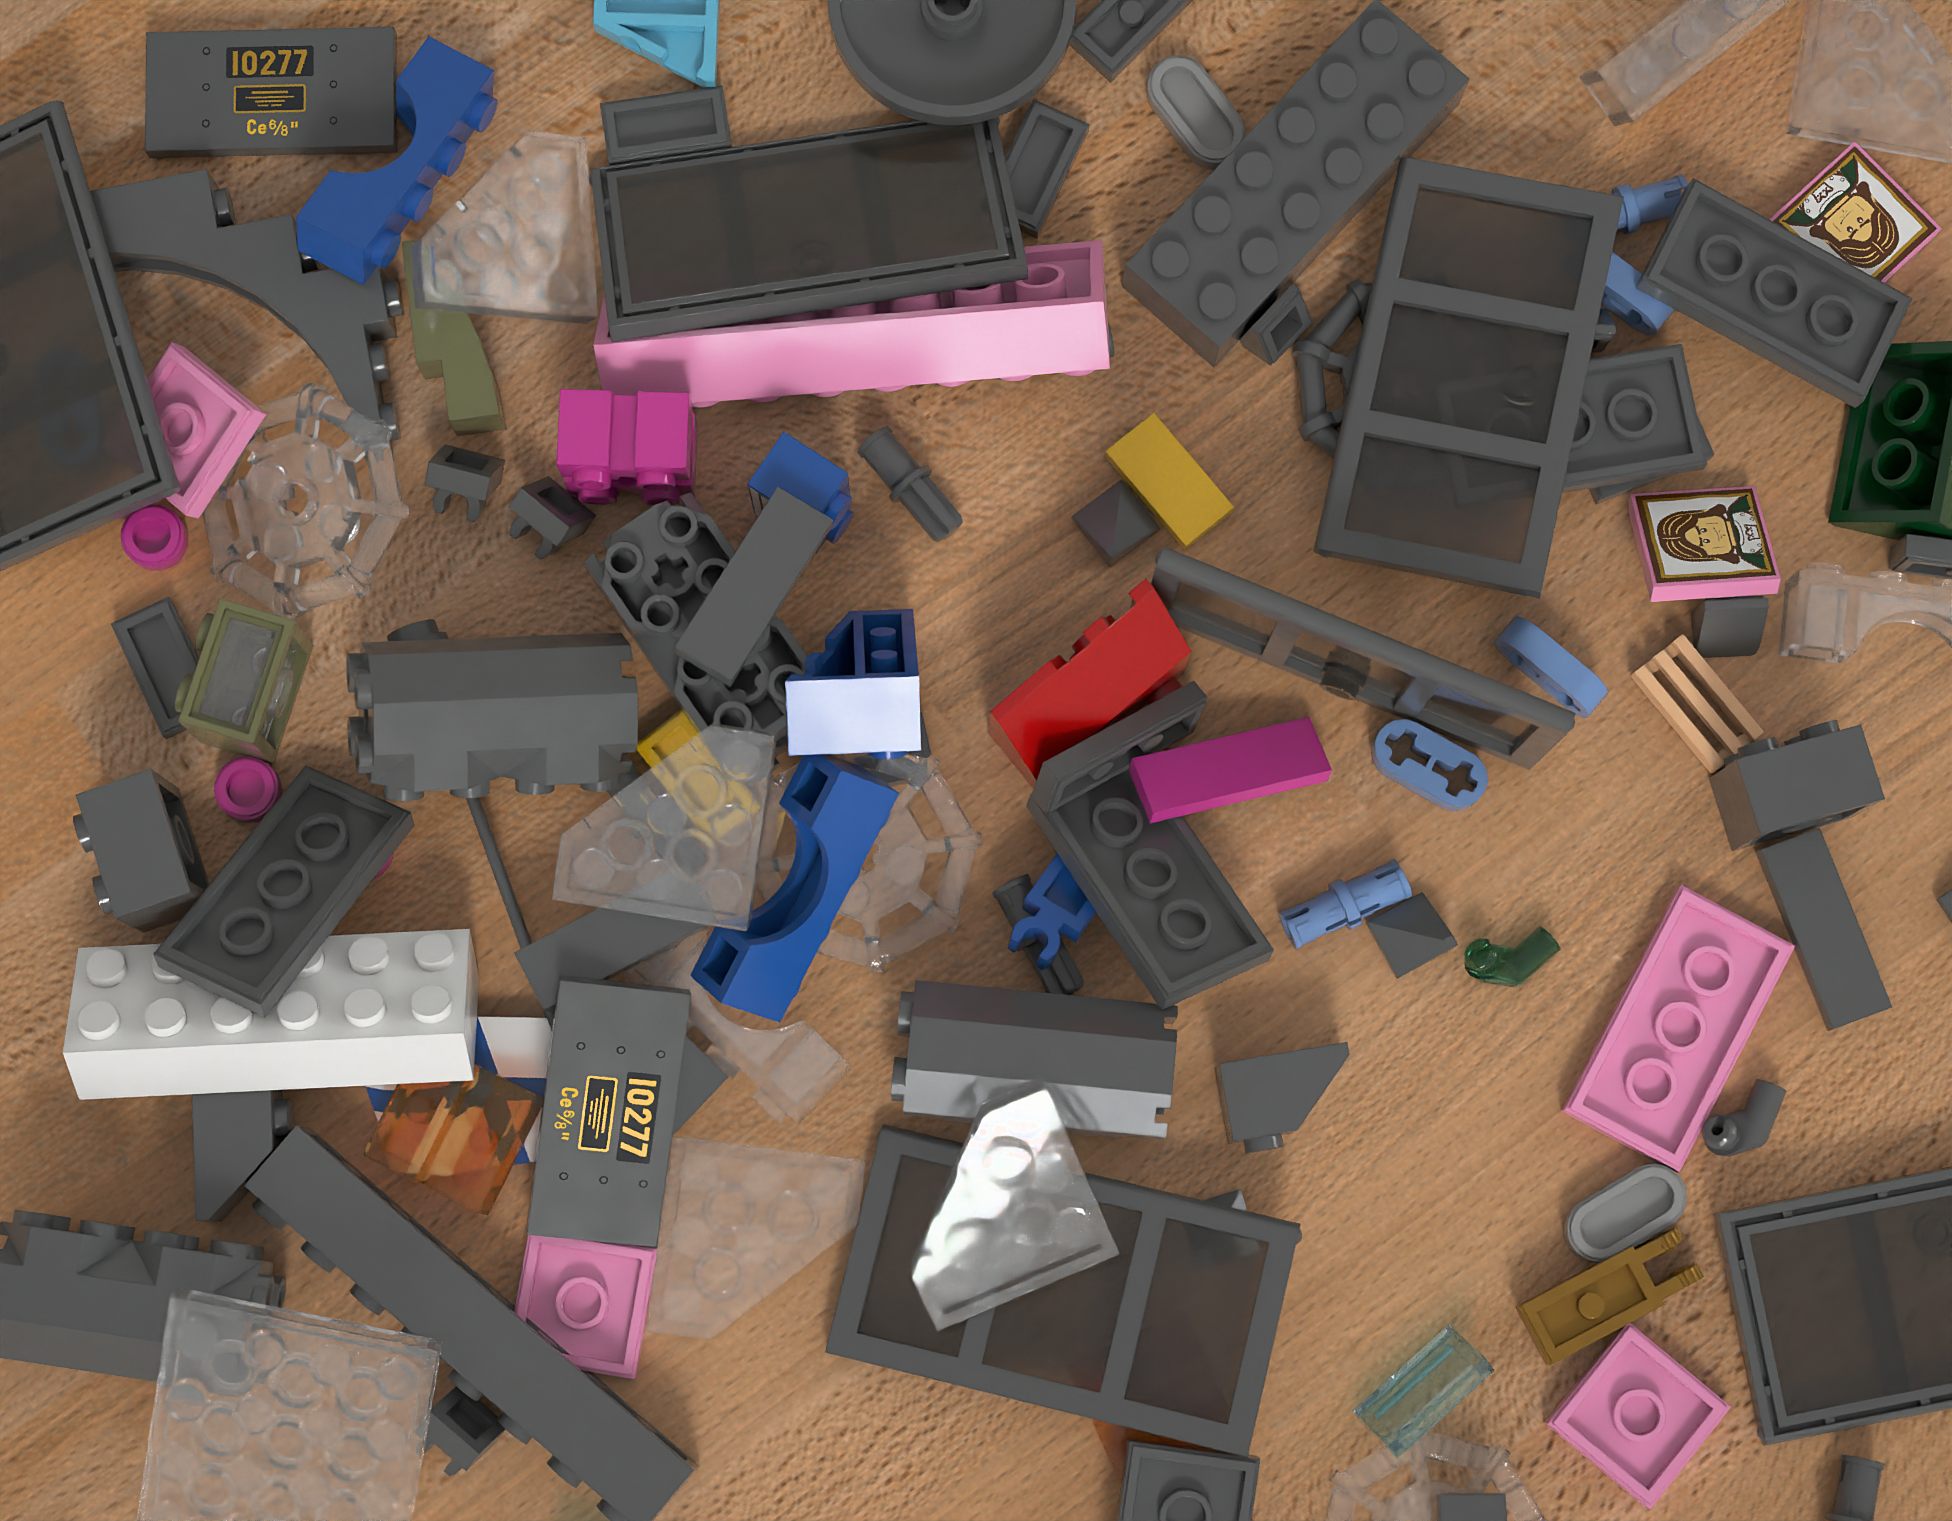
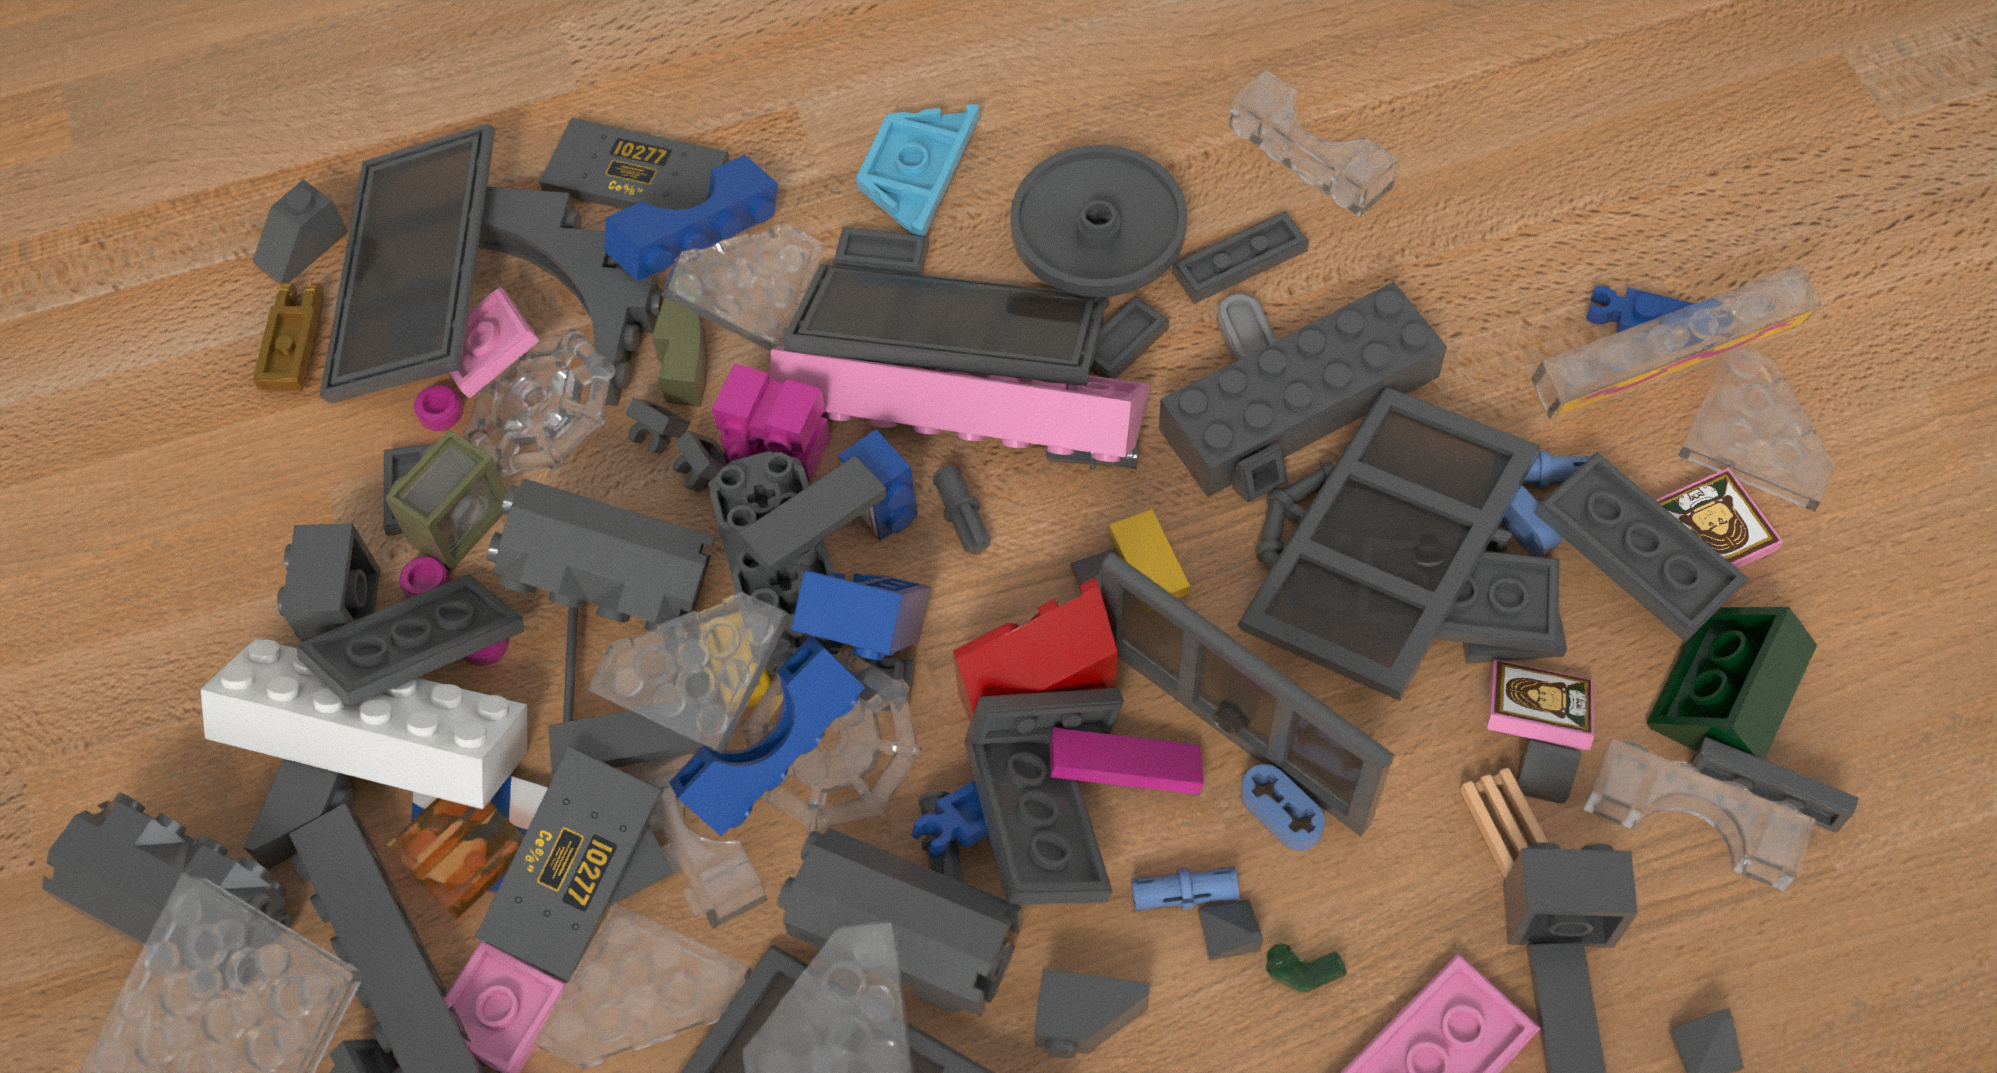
camera: 25 degrees right, 20 degrees down
(1551, 667) = (1407, 772): medium blue beam -> none

